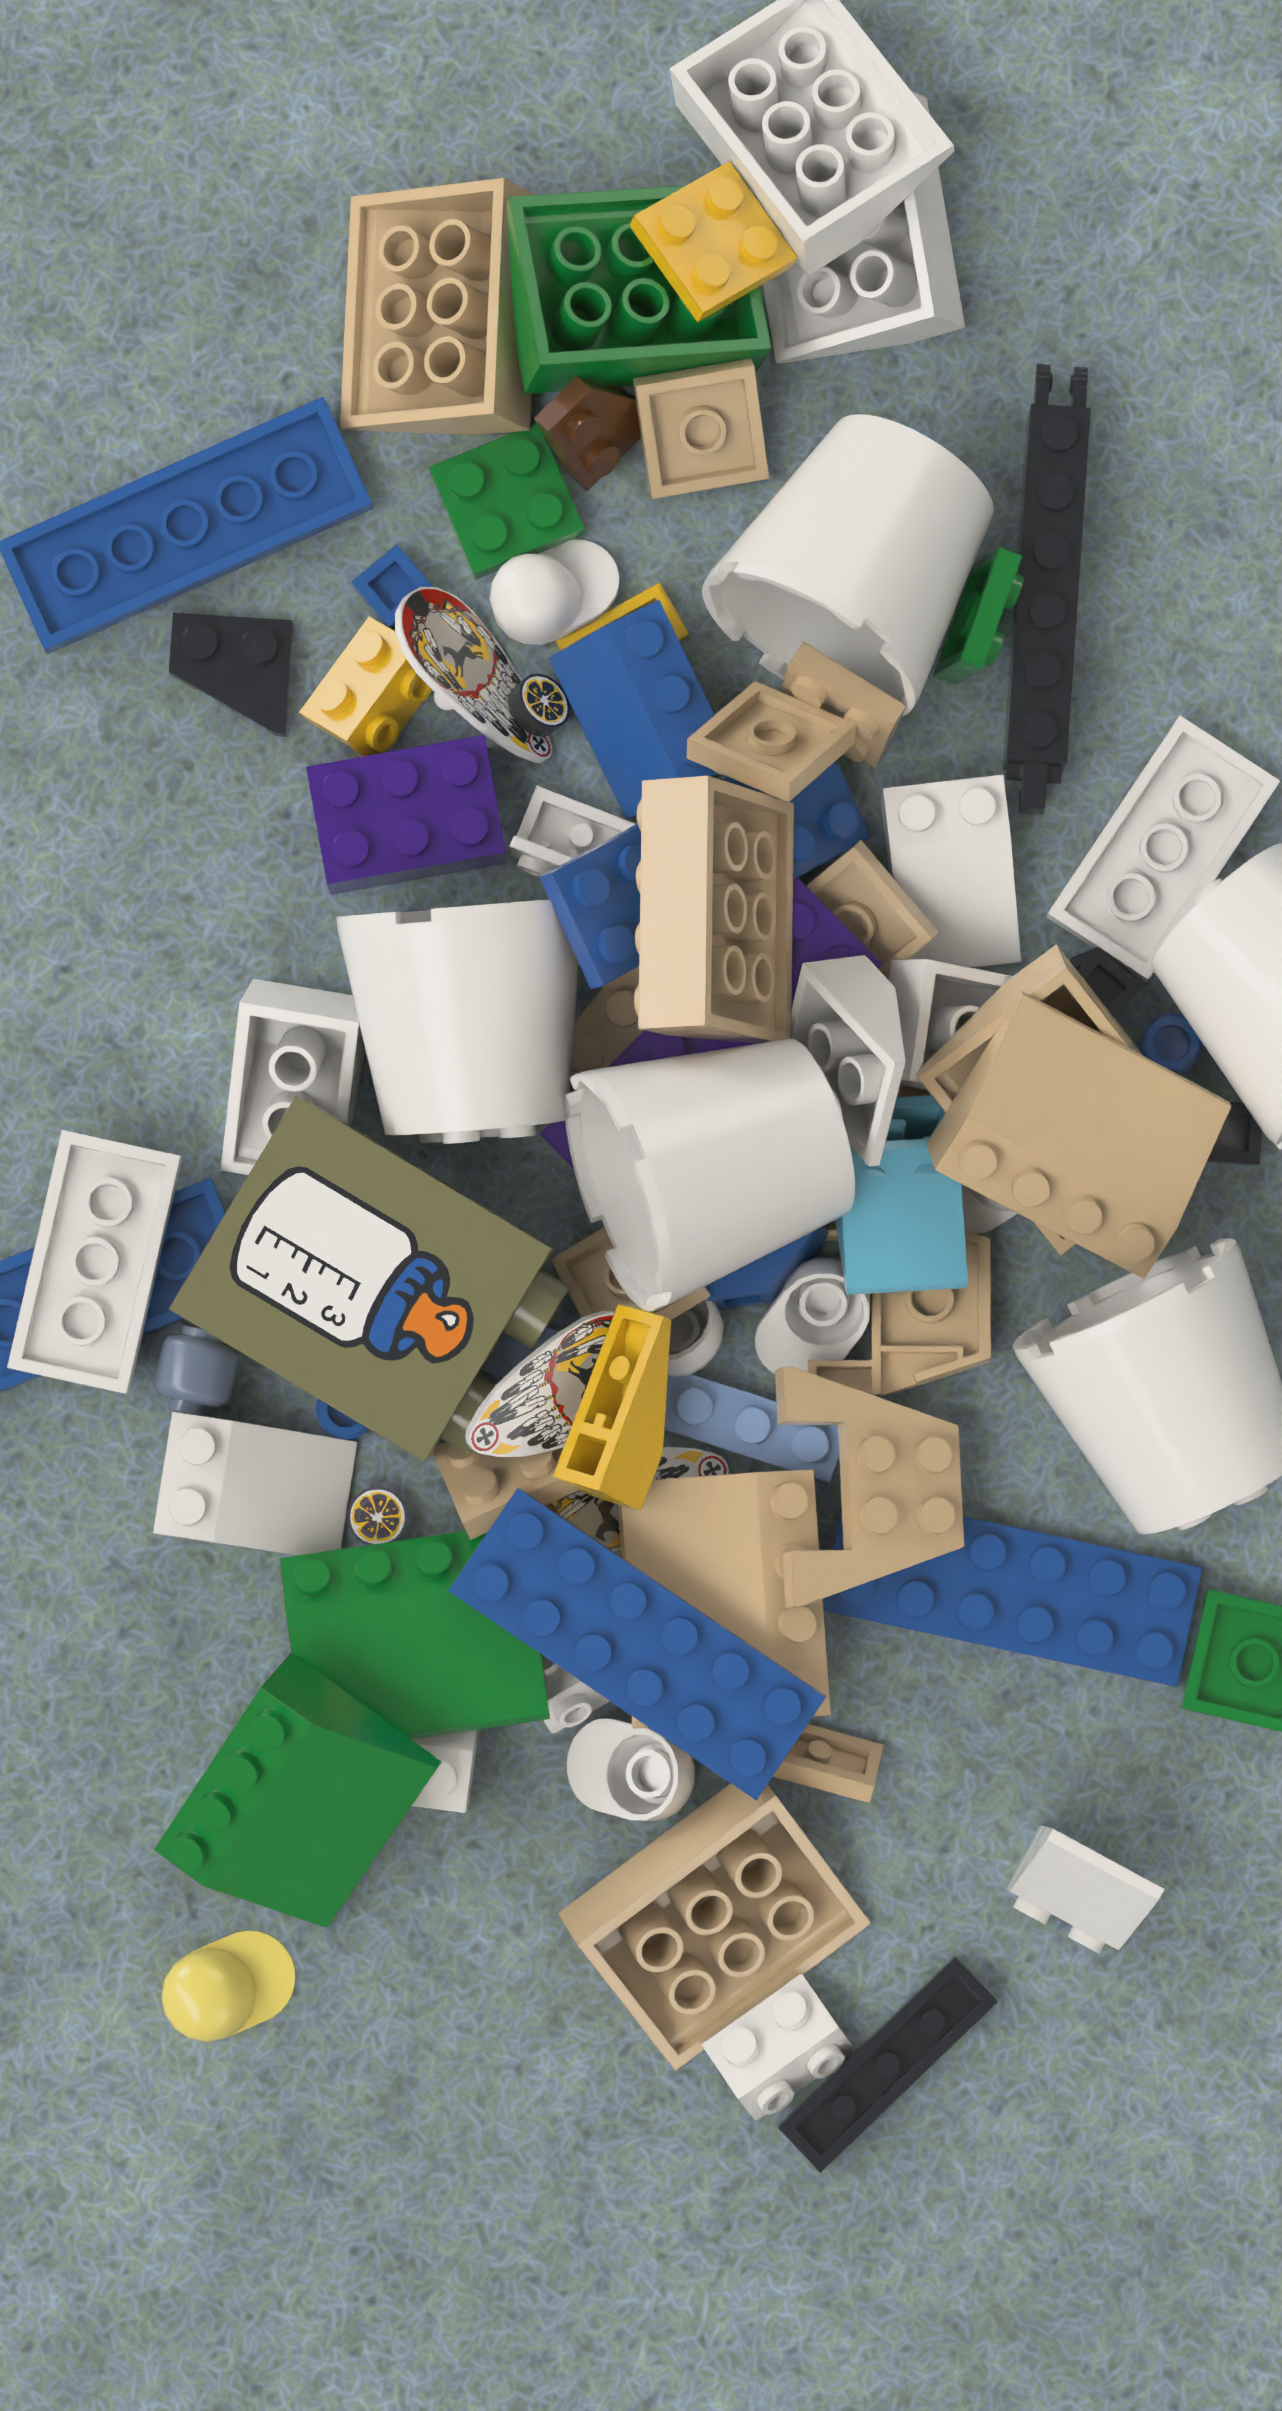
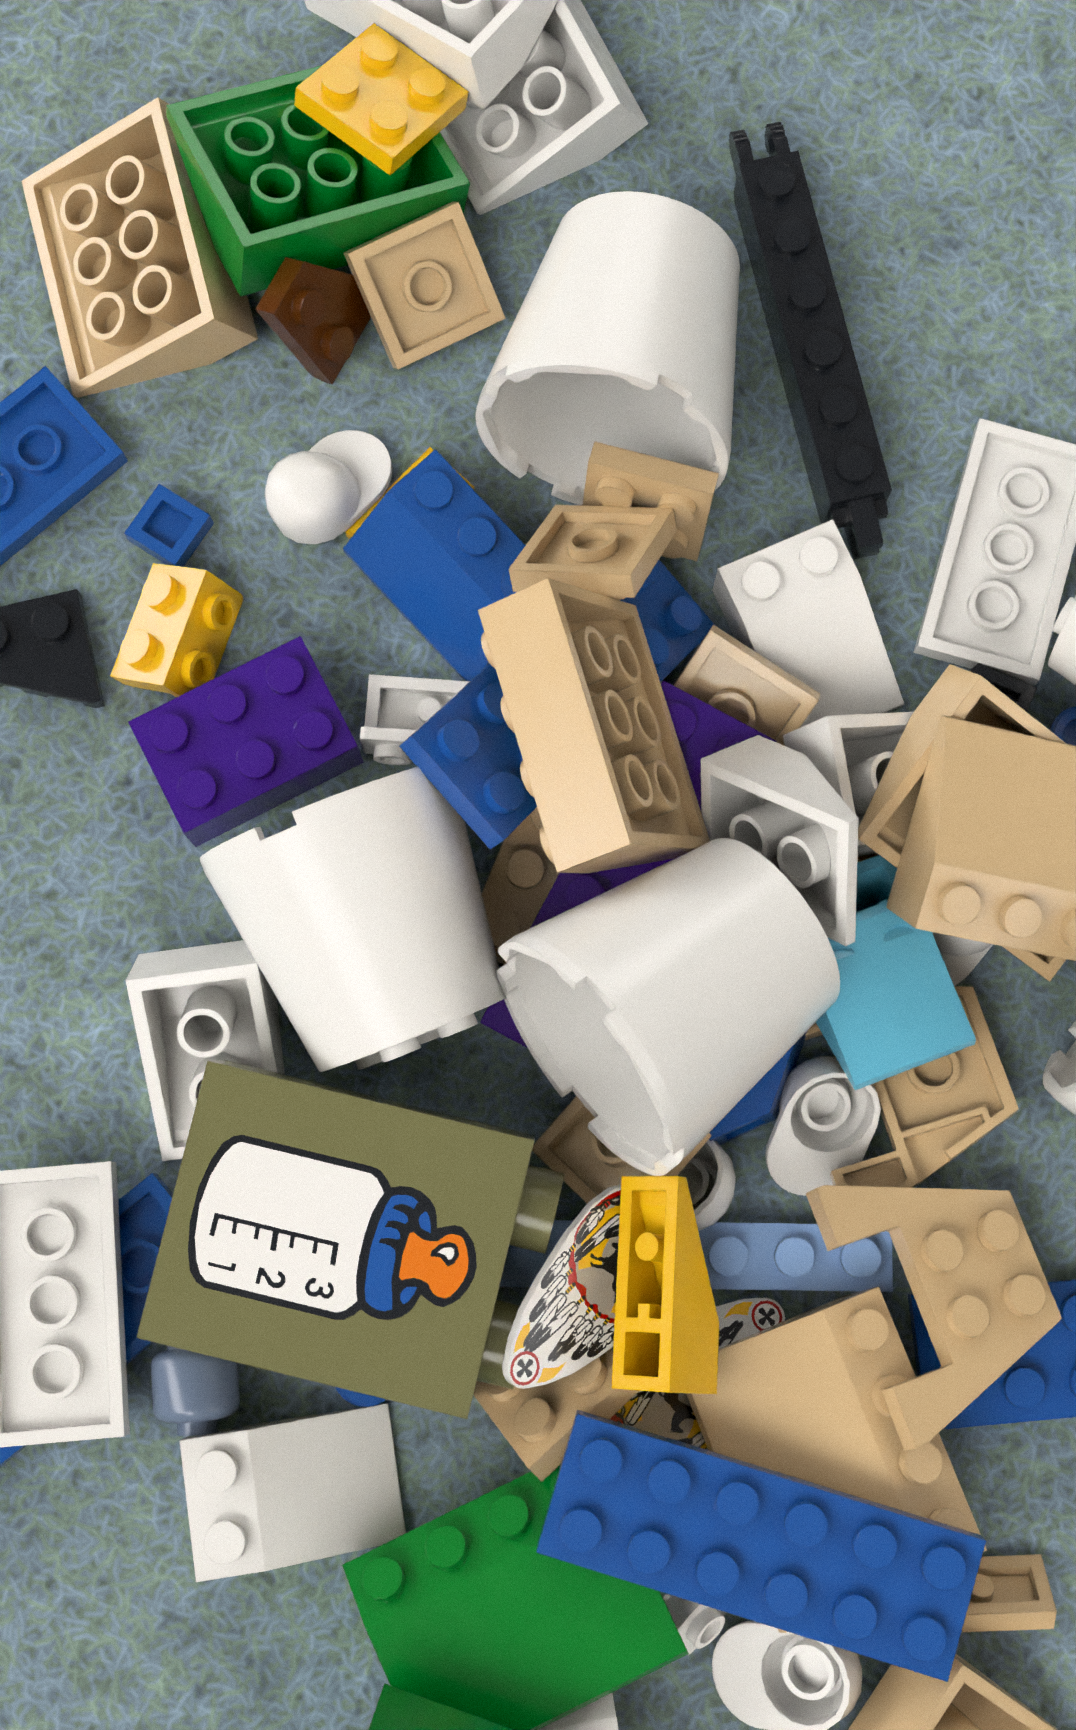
camera: 20 degrees left, 5 degrees down
(377, 1516) = (433, 1478): tile -> none
(464, 667) = (267, 582): shield -> none
(506, 500) = (256, 413): green plate -> none
(539, 705) = (347, 597): black tile -> none
(973, 631) = (759, 382): green plate -> none

